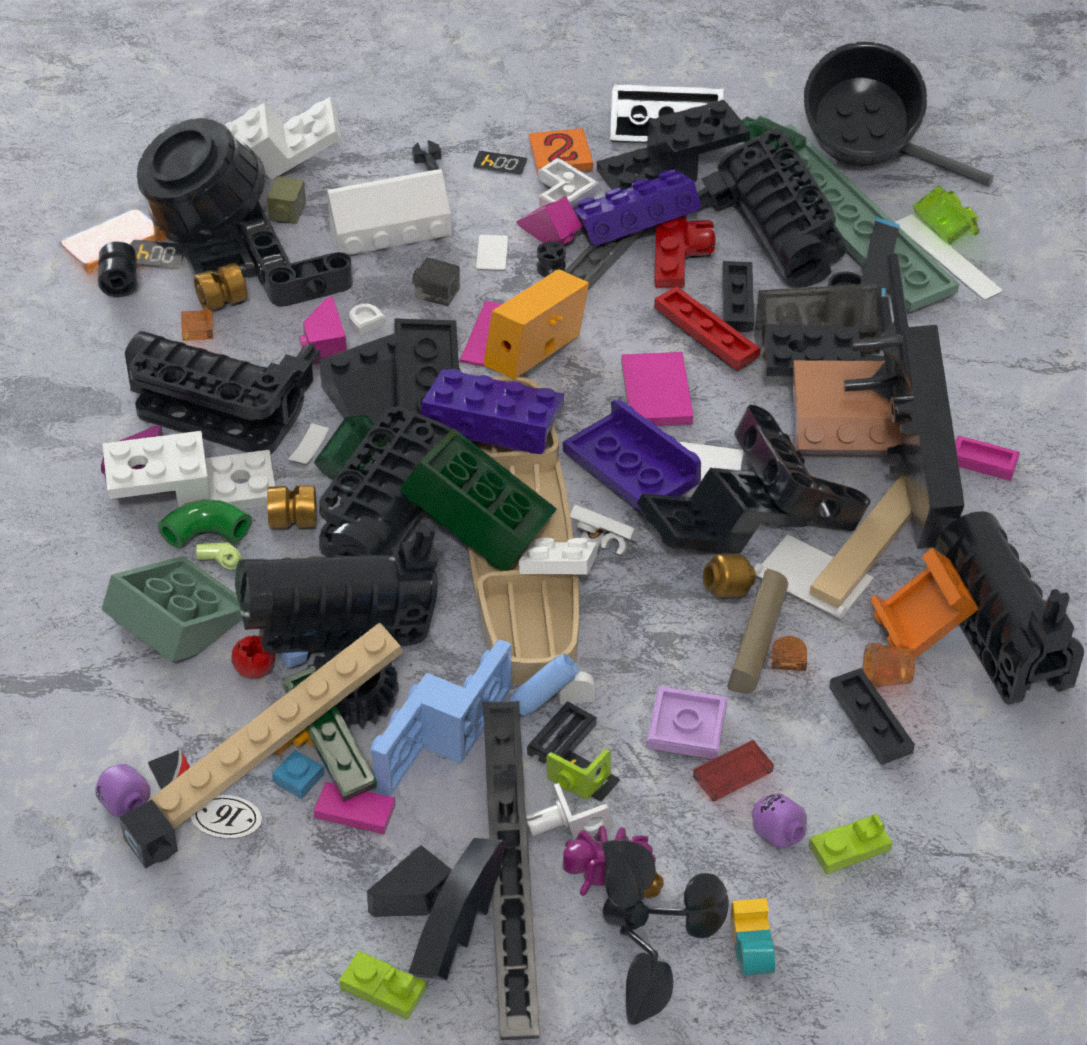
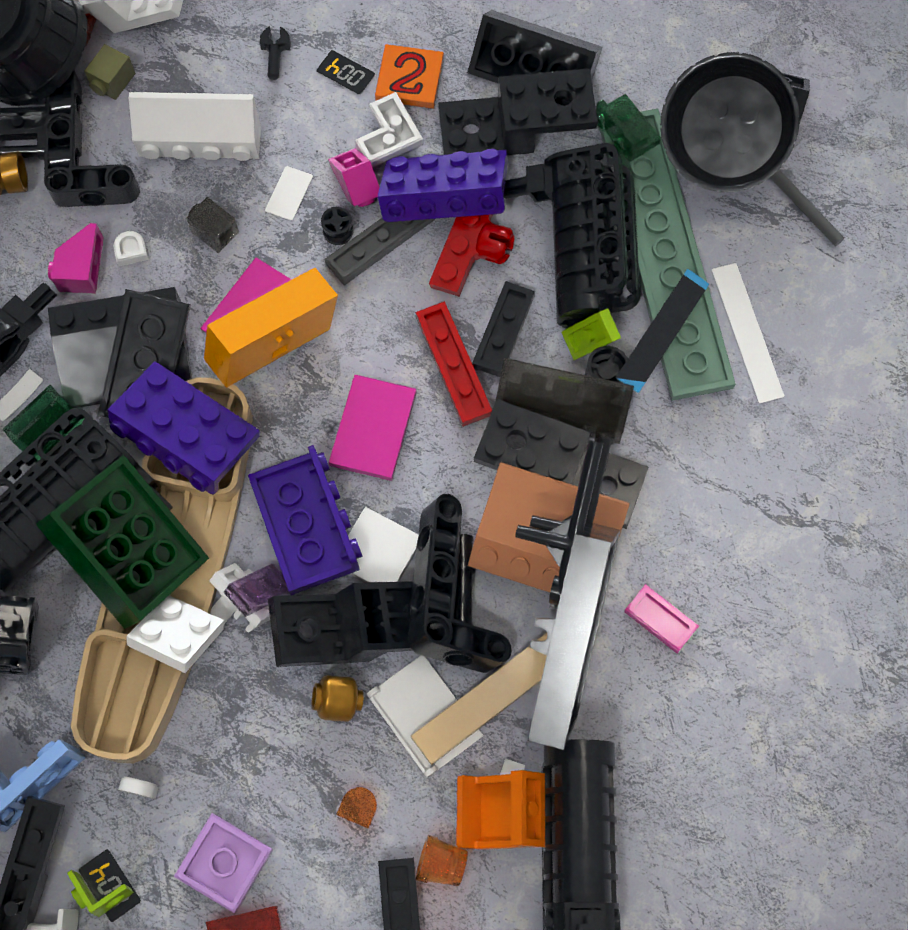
camera: 20 degrees right, 25 degrees up
(535, 746) = (130, 816): black tile -> none
(545, 684) = (101, 784): light blue piece -> none
(618, 511) = (254, 590): none -> clear purple plate
(758, 632) = (337, 776): dark tan brick -> none
(821, 266) = (591, 334): none -> lime plate
(946, 215) = (766, 281): clear neon green bracket -> none

